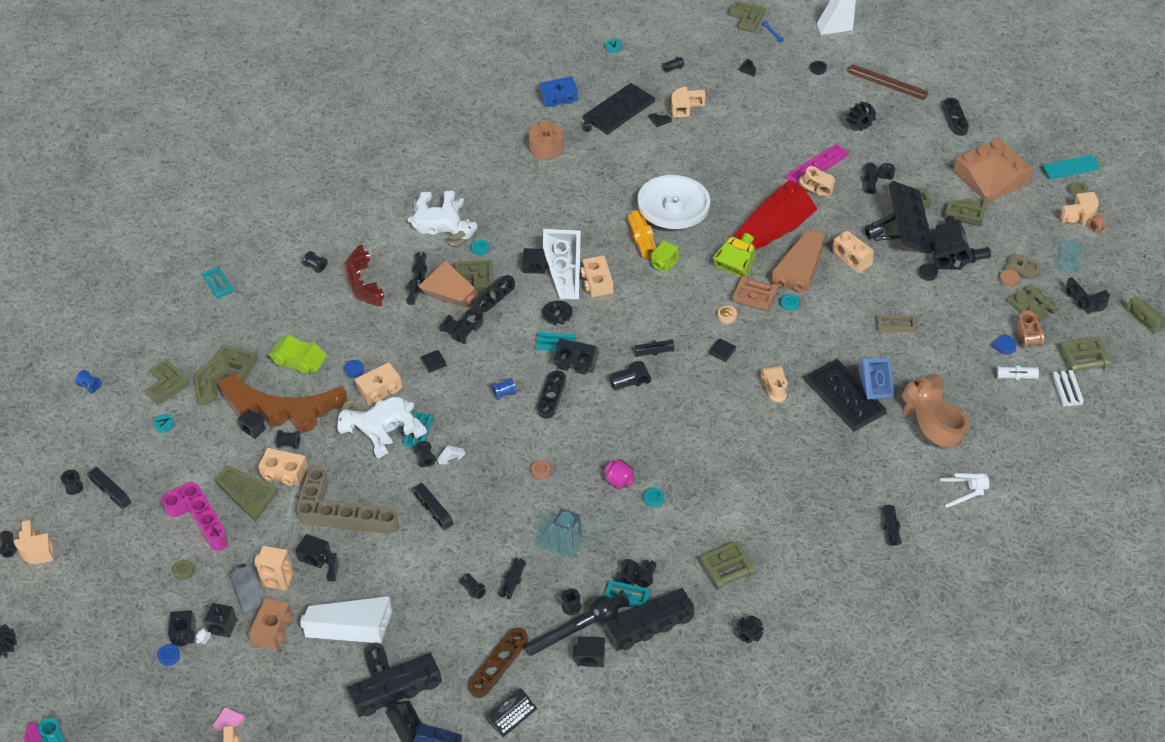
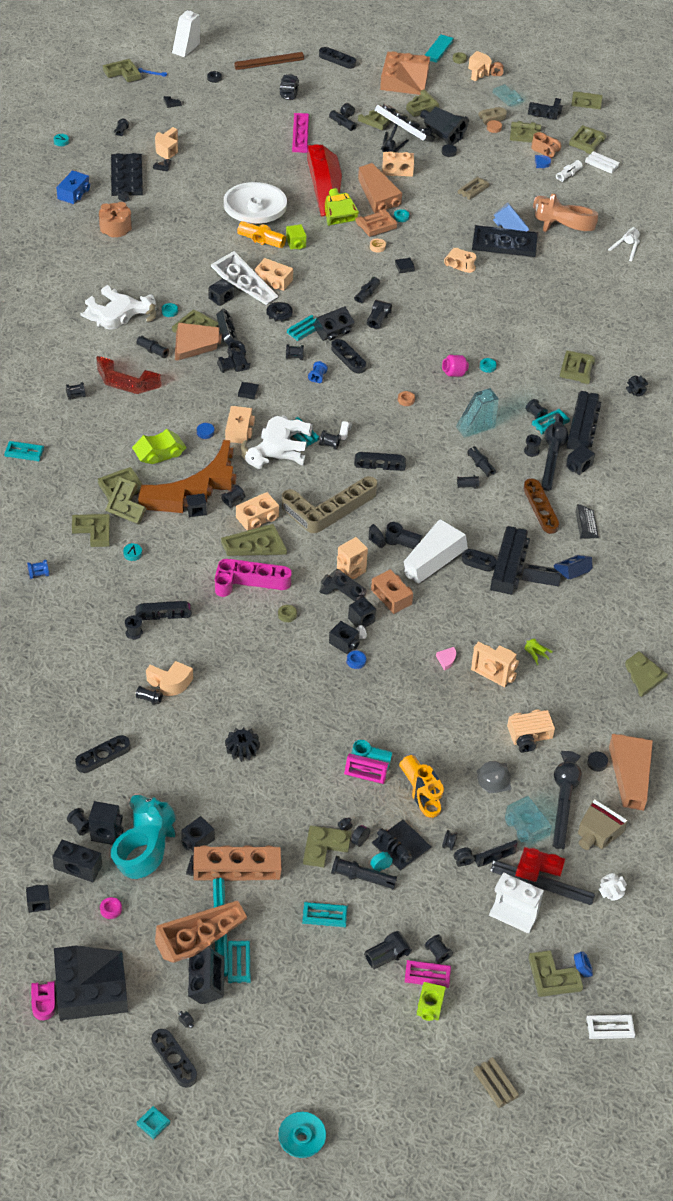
camera: 55 degrees left, 0 degrees up
(313, 551) = (352, 531): black brick -> none
(349, 586) = (397, 535): none -> black piece
(413, 285) = (172, 362): black tile -> none
(513, 356) = (294, 352): none -> black bush
(645, 578) = (545, 402): black pin -> none
(818, 181) = (320, 137): light nougat piece -> none
(891, 525) = (622, 287): black pin -> none

